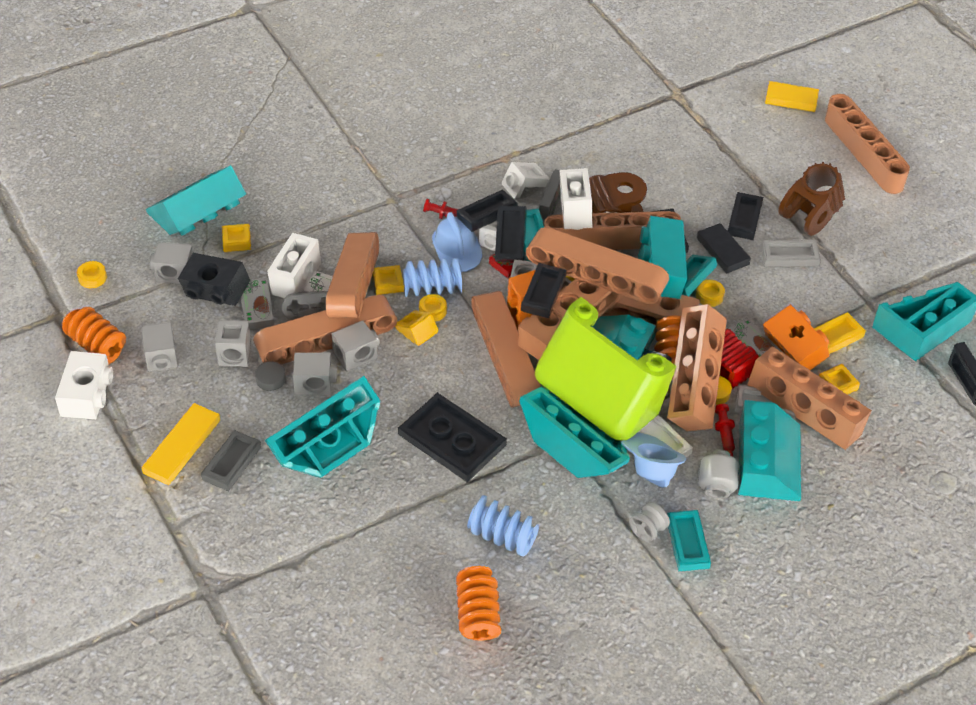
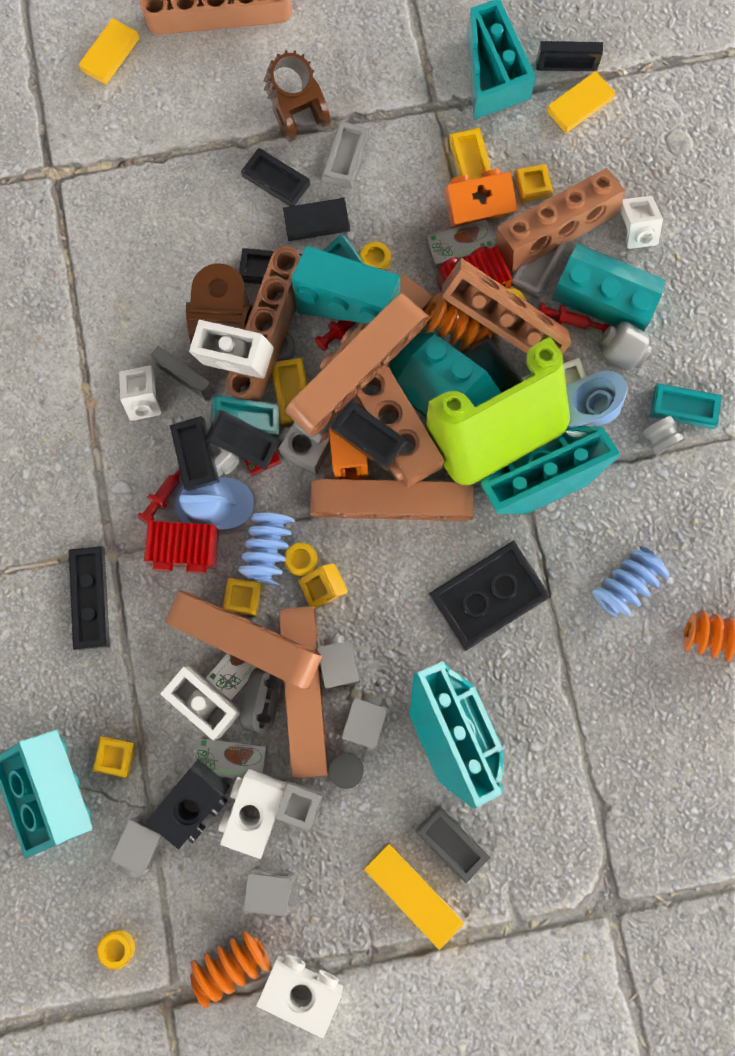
camera: 65 degrees left, 30 degrees up
(205, 313) = (249, 834): none -> white brick
(352, 193) = (88, 598): none -> black tile
(413, 231) = (181, 546): none -> red brick
(843, 460) = (642, 221): none -> white bracket
(934, 397) = (580, 102): none -> yellow tile

